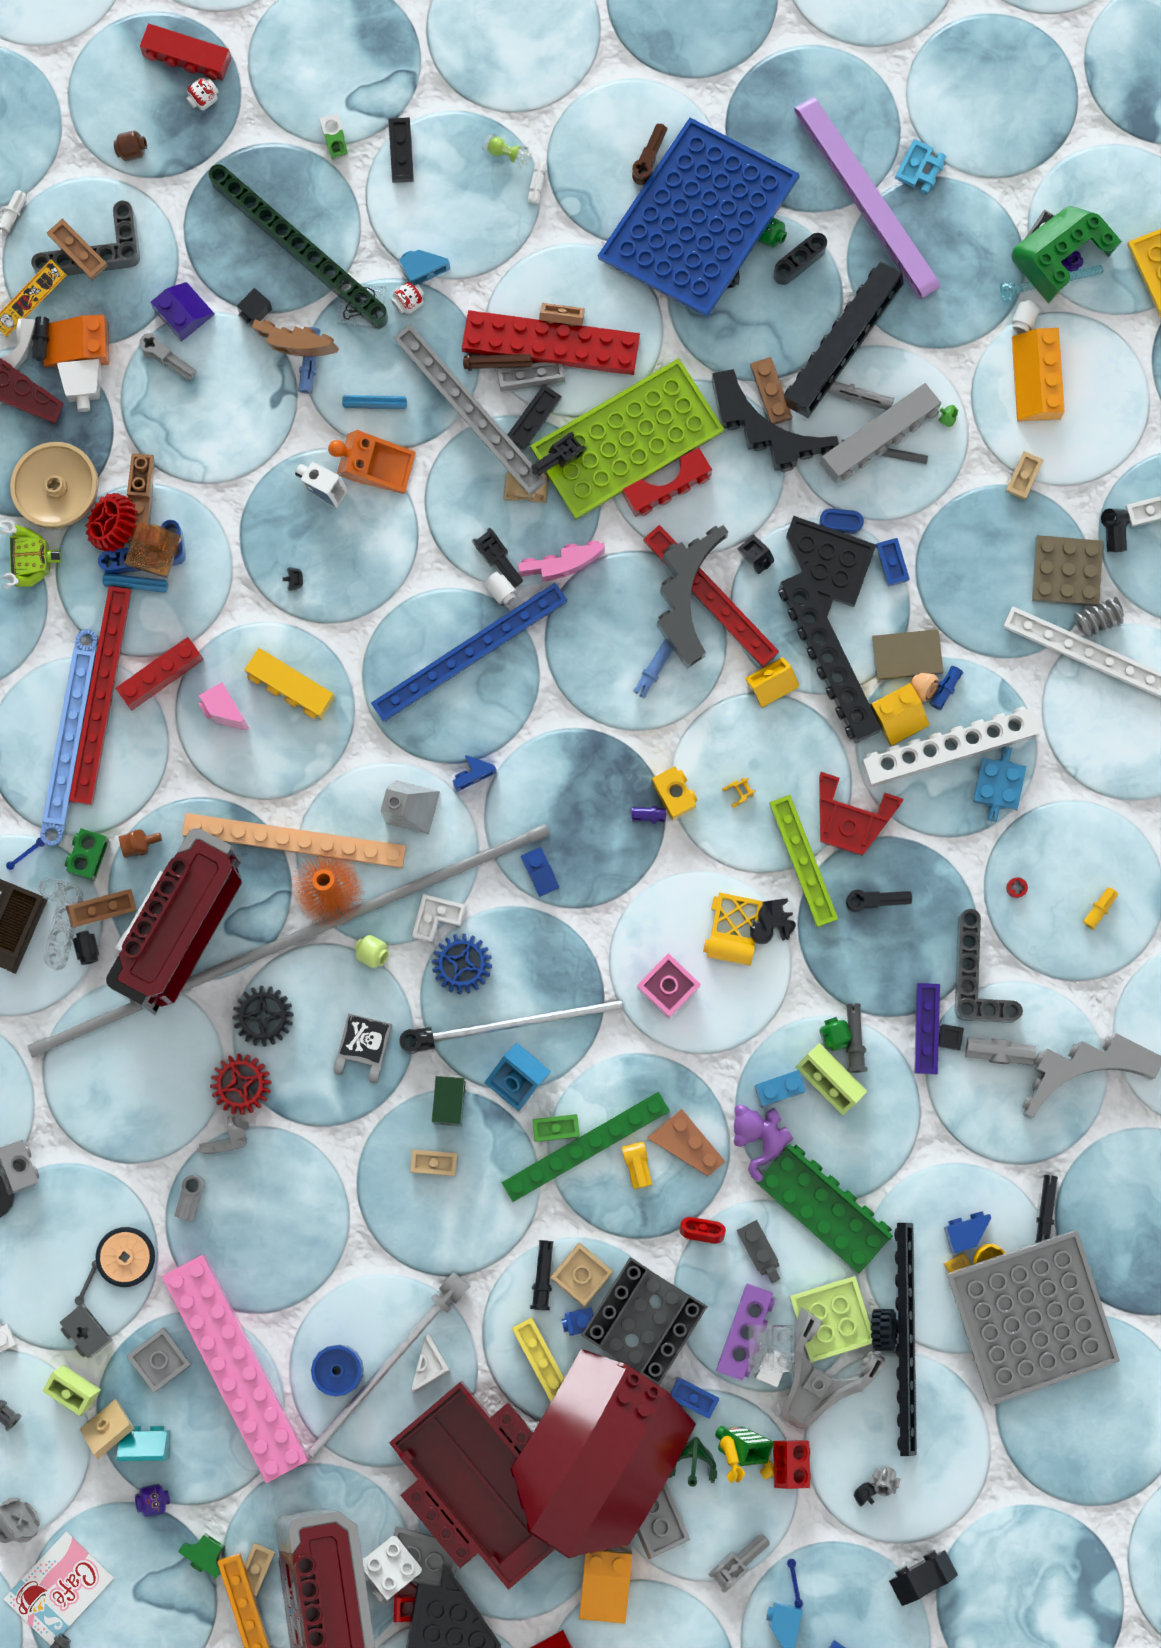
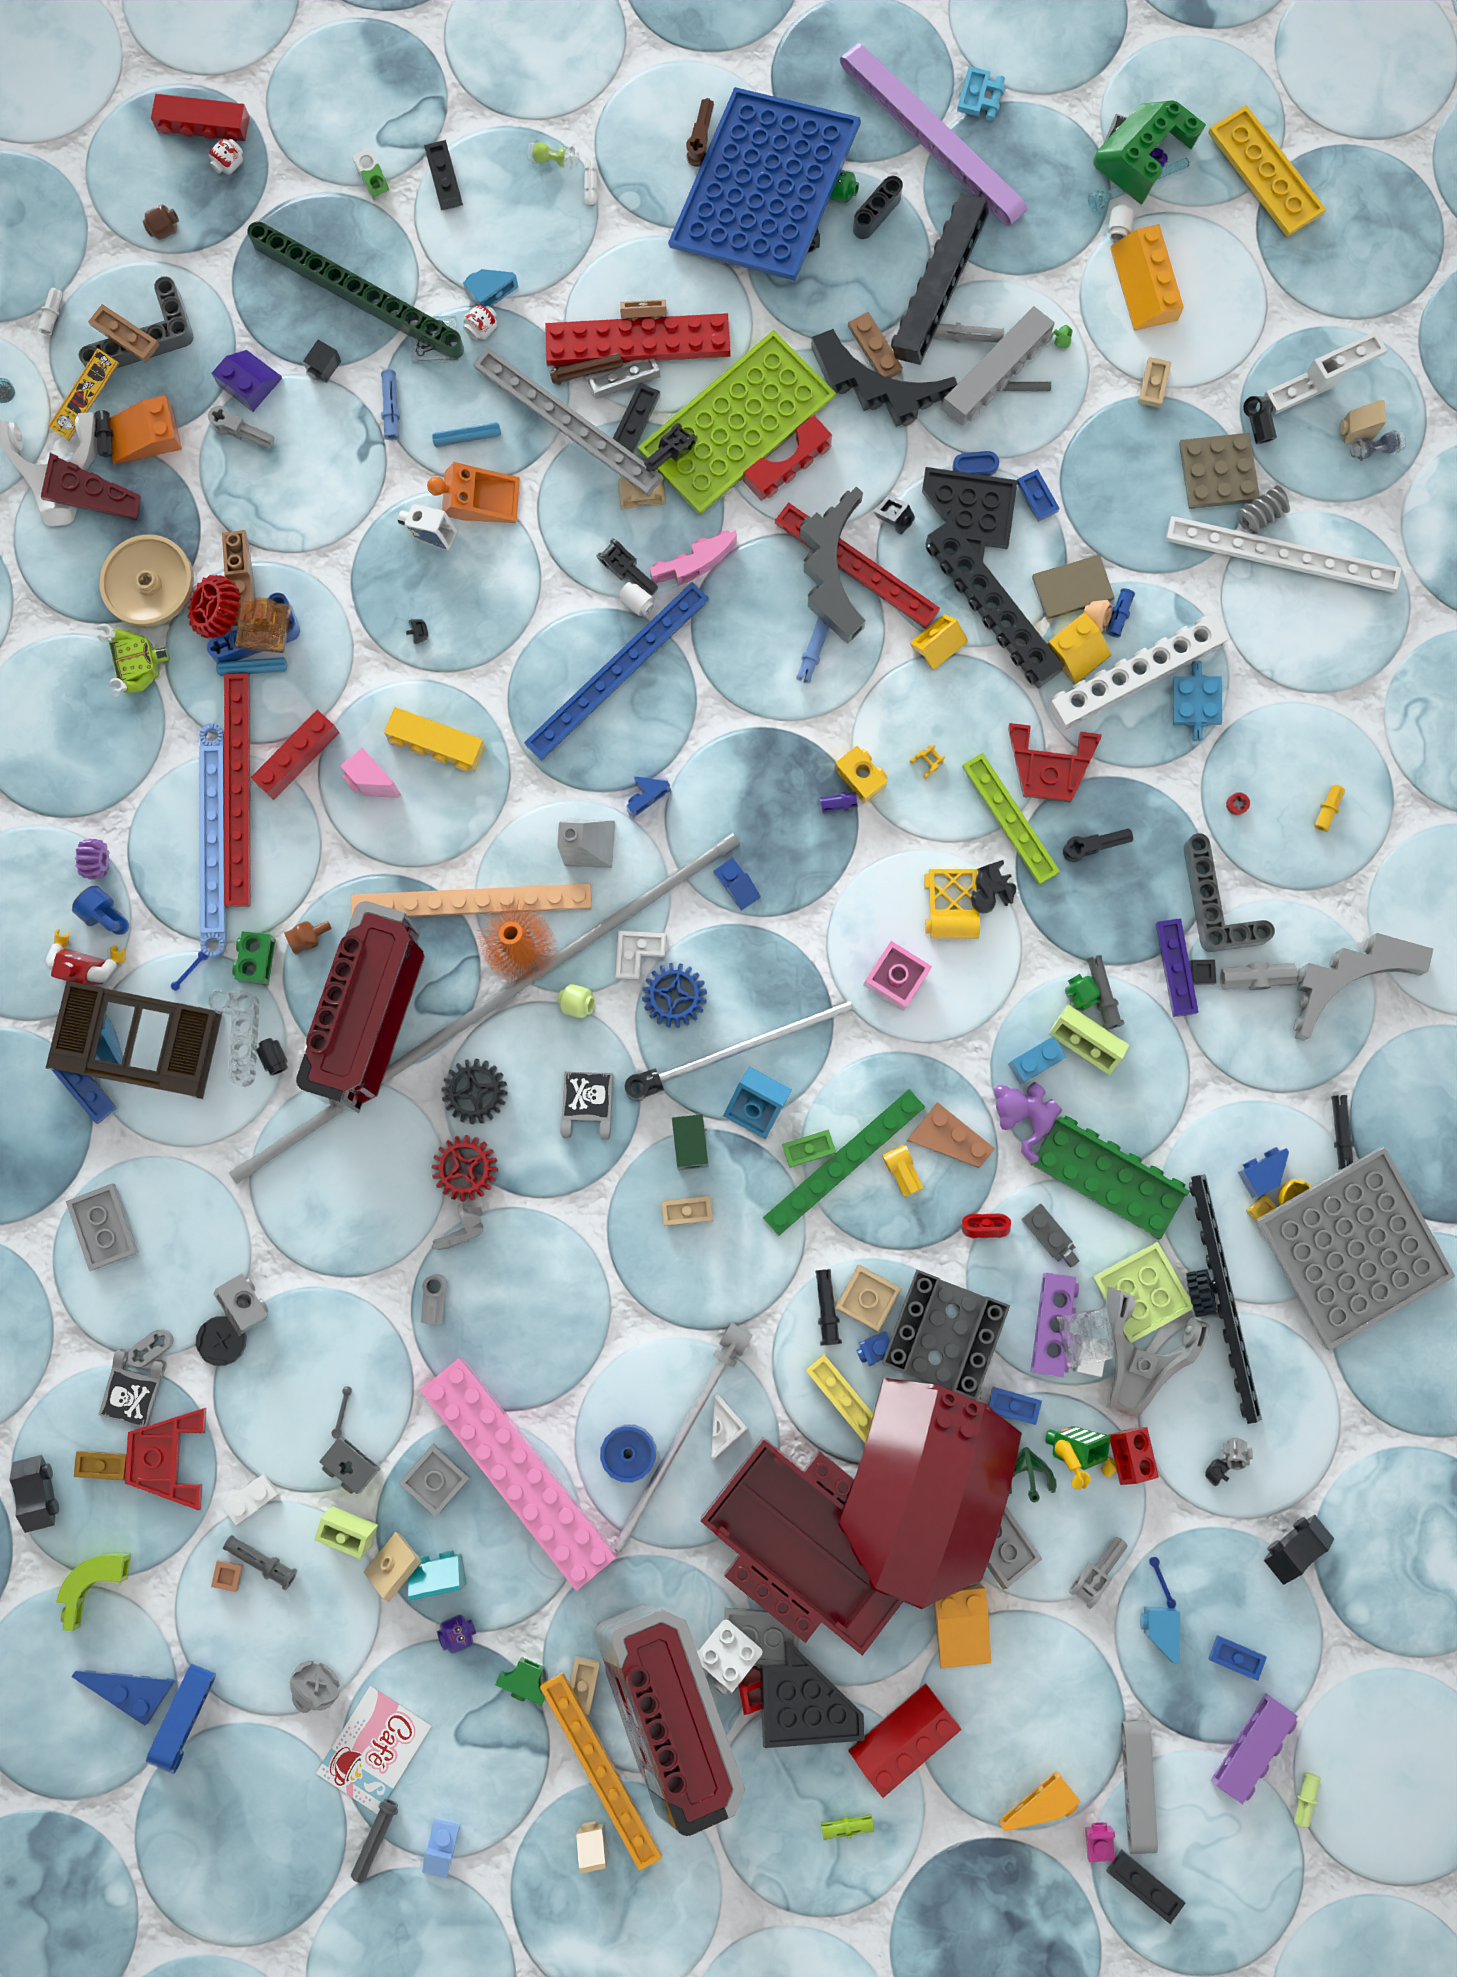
camera: 10 degrees left, 0 degrees up
(81, 381) = (155, 470): white torso -> none
(101, 908) = (279, 1011): medium nougat plate -> none
(111, 1249) = (362, 1368): light nougat wheel -> none
(297, 343) = (374, 387): medium nougat slope -> none

